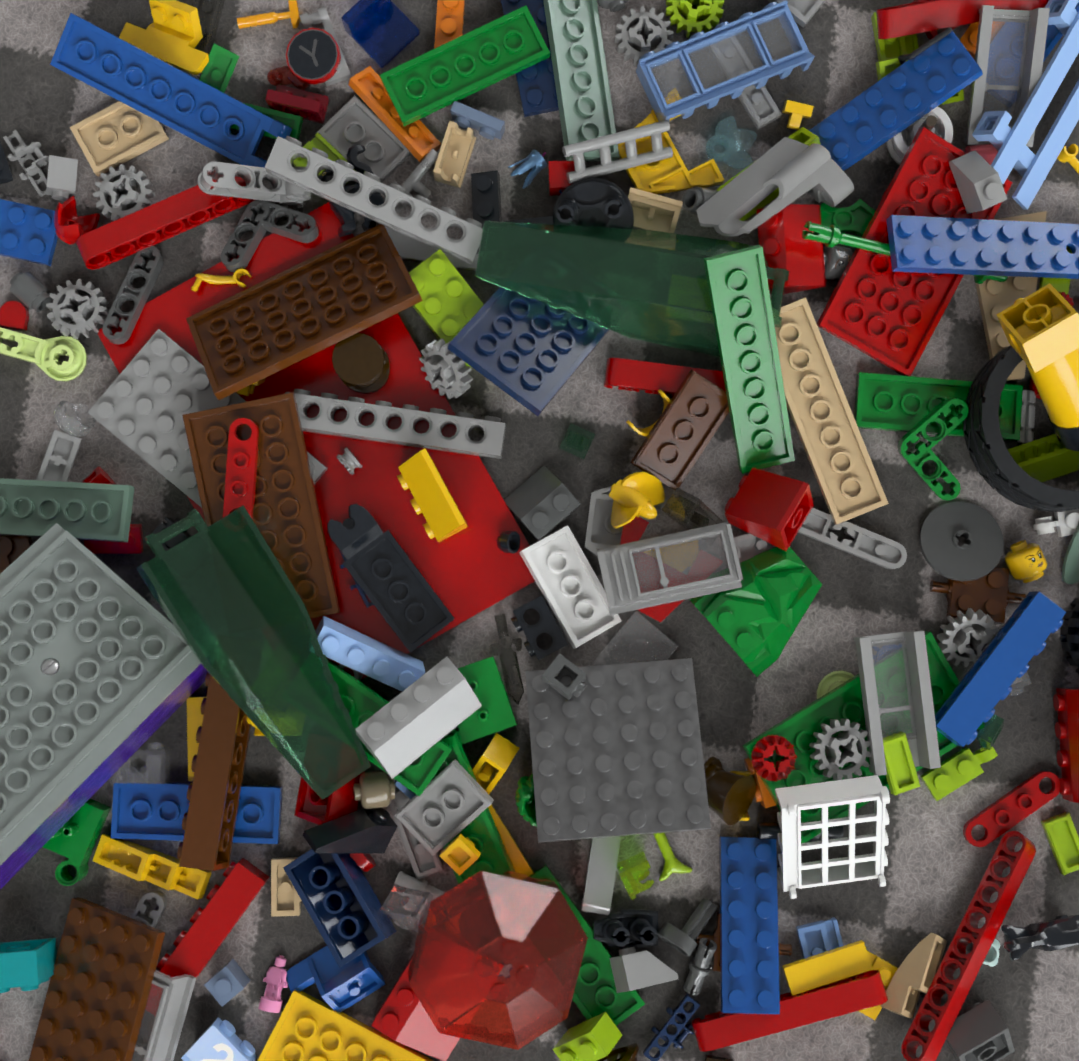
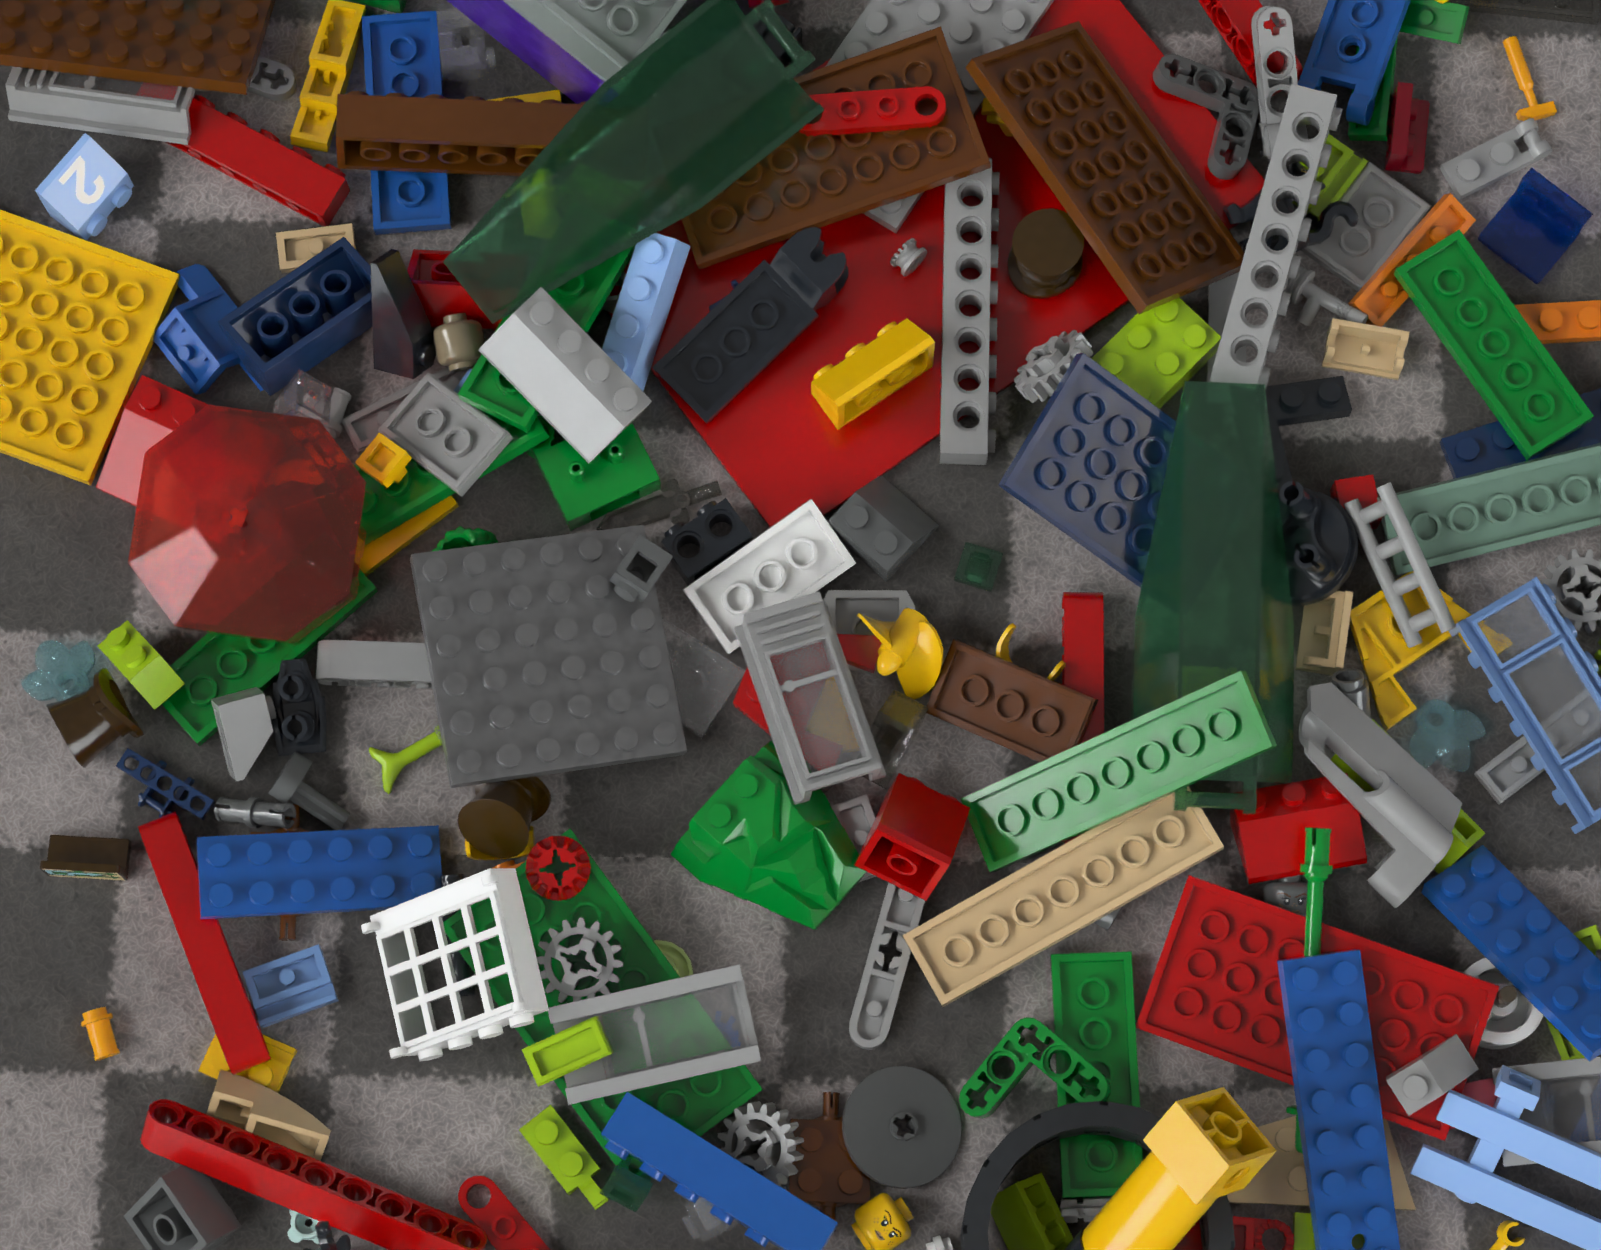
camera: 85 degrees right, 10 degrees down
(213, 279) = (1143, 77): yellow piece -> none
(227, 982) = (183, 187): sand blue brick -> none
(275, 982) = (187, 251): bright pink piece -> none
(284, 76) = (1443, 112): clear red arm -> none
(313, 55) = (1474, 141): black tile -> none
(363, 860) = (361, 344): red tile -> none
(469, 117) = (1421, 359): sand blue plate -> none
(494, 762) = (510, 499): yellow slope -> none
(509, 541) = (826, 487): black hinge -> none
(534, 161) = (1374, 458): flat silver piece -> none
(632, 872) = (371, 700): clear neon green hinge -> none
(796, 112) = (1504, 822): yellow tile -> none
(827, 967) = (268, 988): yellow tile -> none
(849, 219) = (1355, 902): green tile -> none

